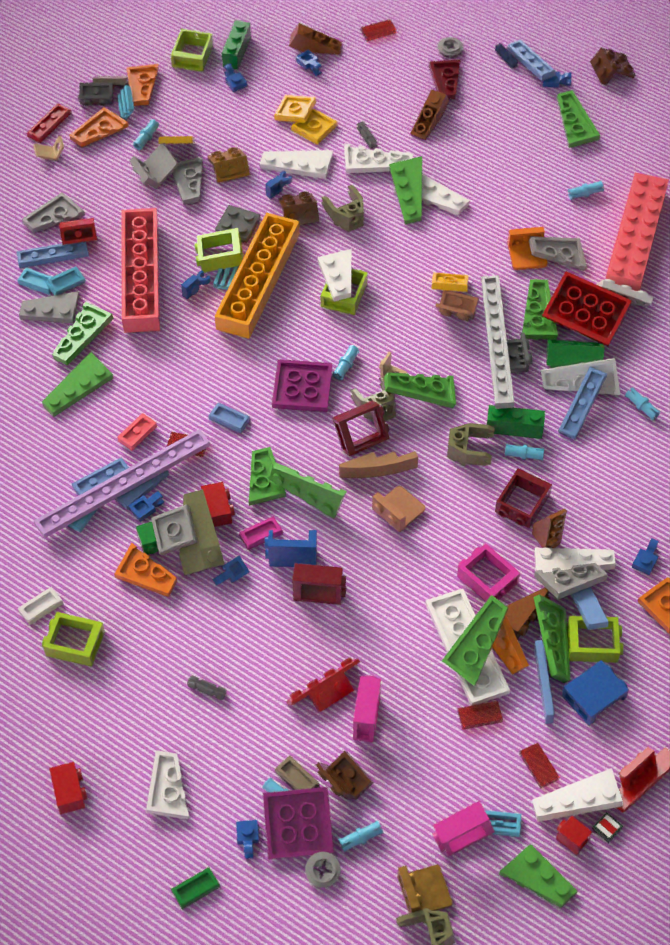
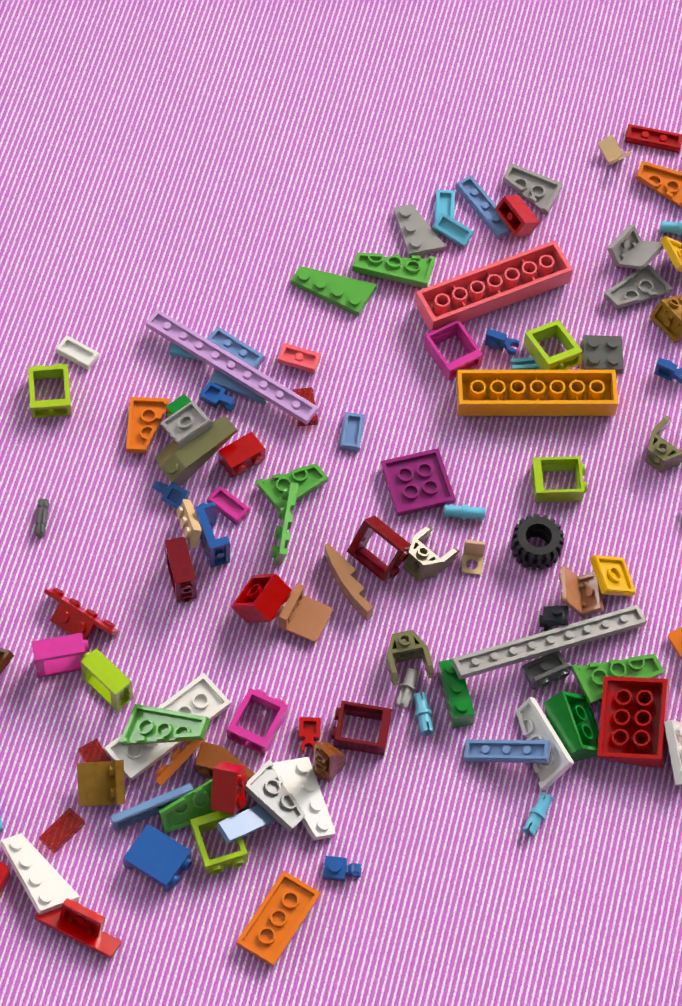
camera: 65 degrees right, 5 degrees up
(185, 306) = (467, 362): none -> dark pink window
(275, 560) = (189, 523): none -> tan plate
(300, 207) = (648, 400): reddish brown bracket -> none
(337, 273) = (567, 461): white wing -> none
(374, 529) = (261, 598): none -> red brick
(398, 309) = (537, 556): none -> black tyre
(407, 677) = (106, 679): none -> lime window
(427, 389) = (459, 597): bright green wing -> none
(473, 331) = (554, 616): none -> black bracket
(497, 455) = (407, 688): none -> light grey axle
(509, 711) = (101, 783): none -> pearl gold bracket
(511, 538) = (309, 731): none -> red plate
(559, 605) = (228, 788): none -> red brick
(607, 827) = (15, 910): tile -> none

